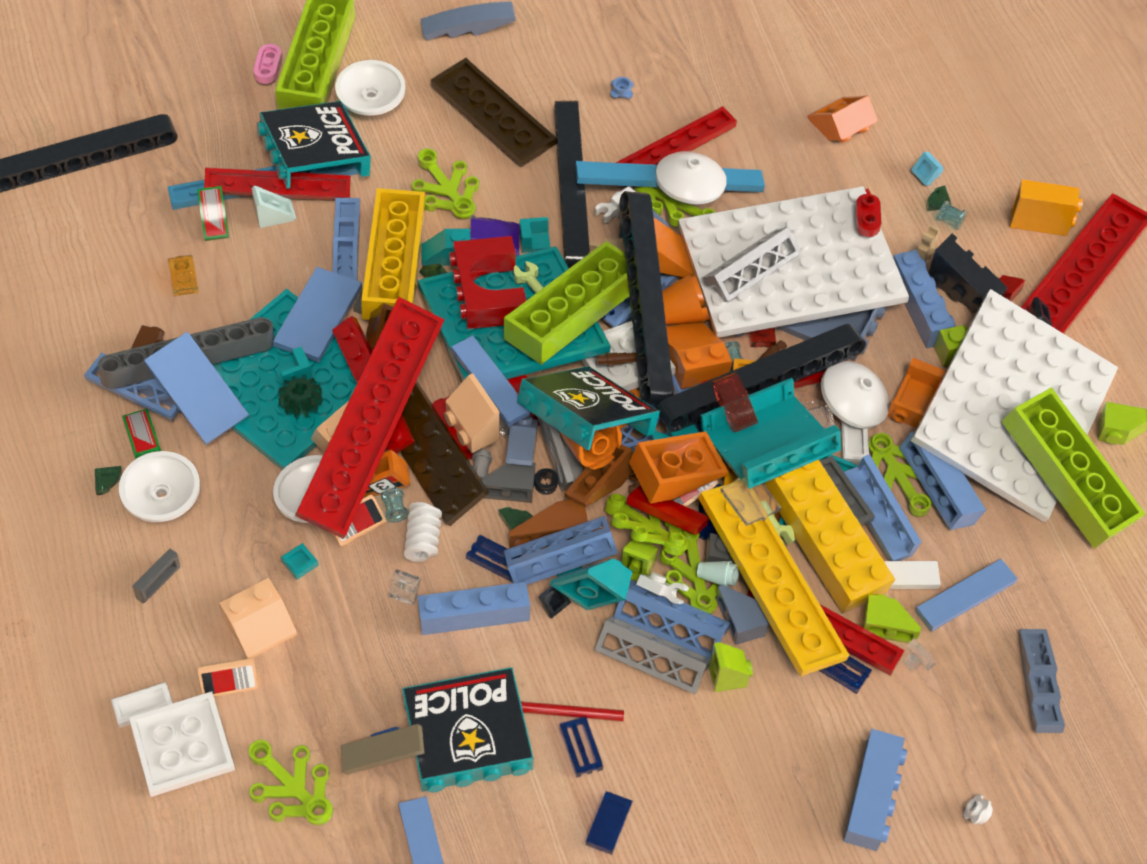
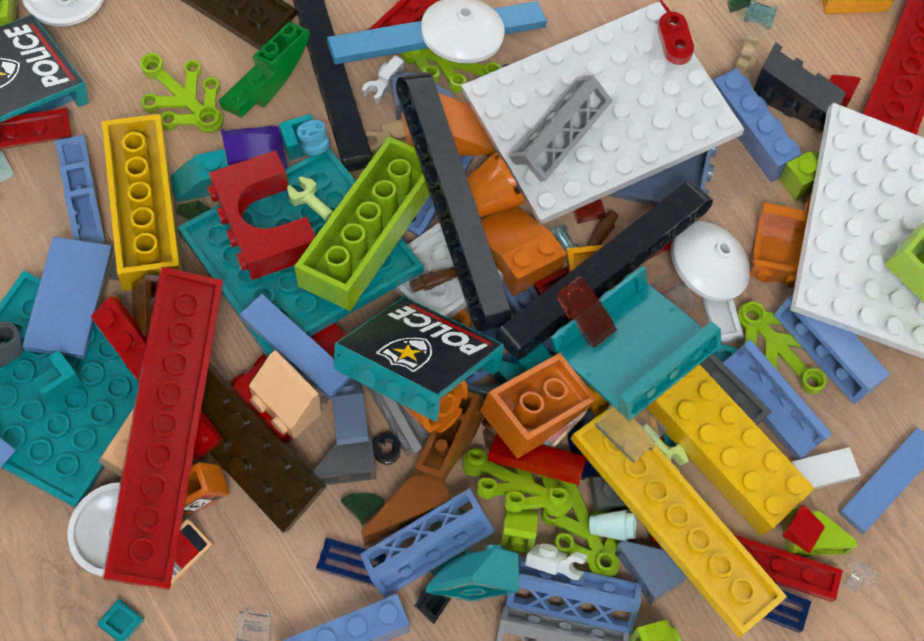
camera: 15 degrees left, 10 degrees up
(300, 396) = (59, 412): clear green gear -> none
(394, 505) = (217, 523): clear light blue bush -> none
(422, 532) = (257, 552): white piece -> none
(482, 459) = (307, 447): light grey pin -> none
(524, 180) = (271, 70): none -> green slope
(545, 235) = (313, 137): none -> medium azure wheel
(877, 606) = (804, 529): none -> red slope
(1040, 310) = (888, 114): black slope -> none

